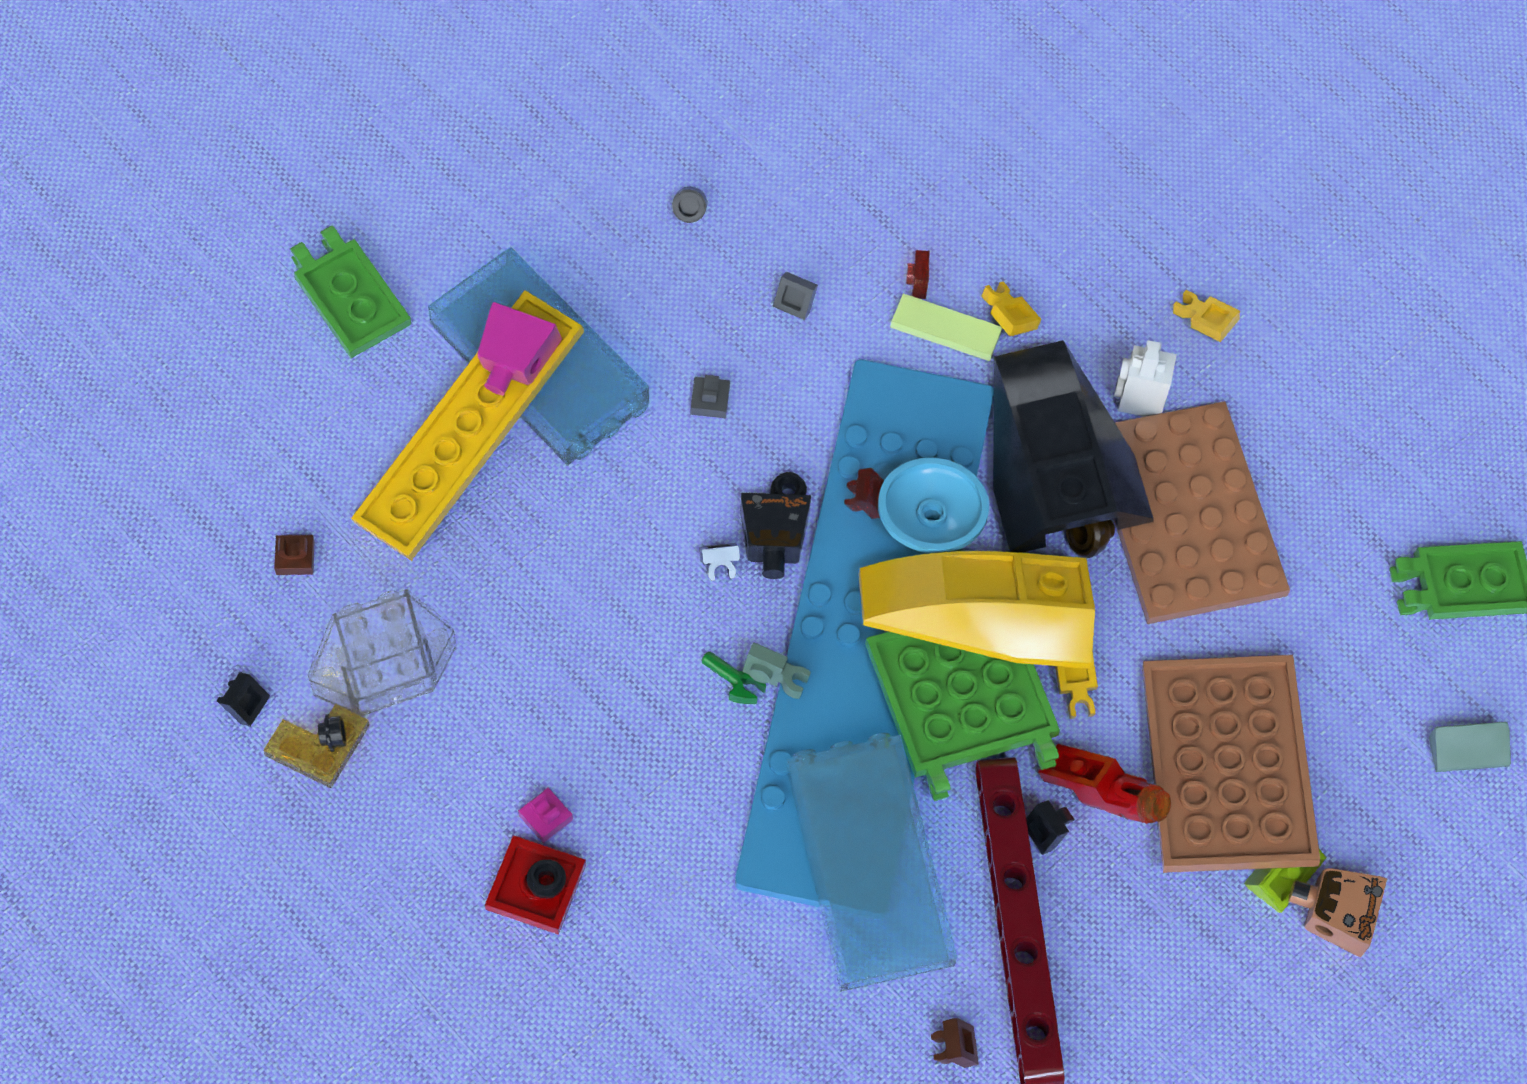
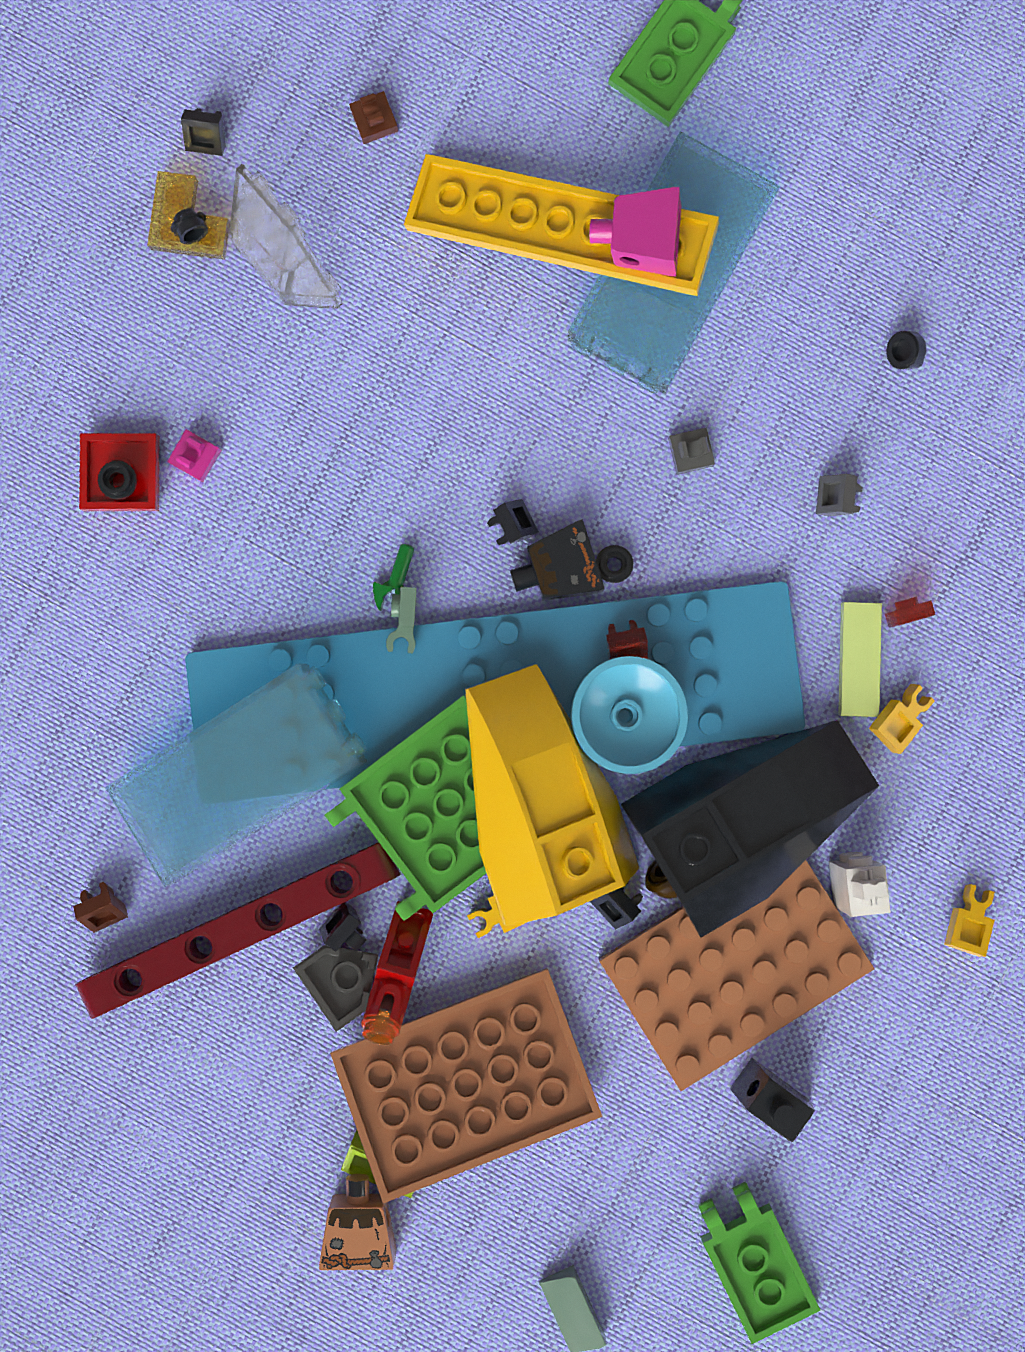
camera: 75 degrees right, 25 degrees up
(1099, 849) = (338, 982): none -> dark grey plate
(1106, 585) = (618, 907): none -> black tile
(1326, 507) = (774, 1101): none -> black torso

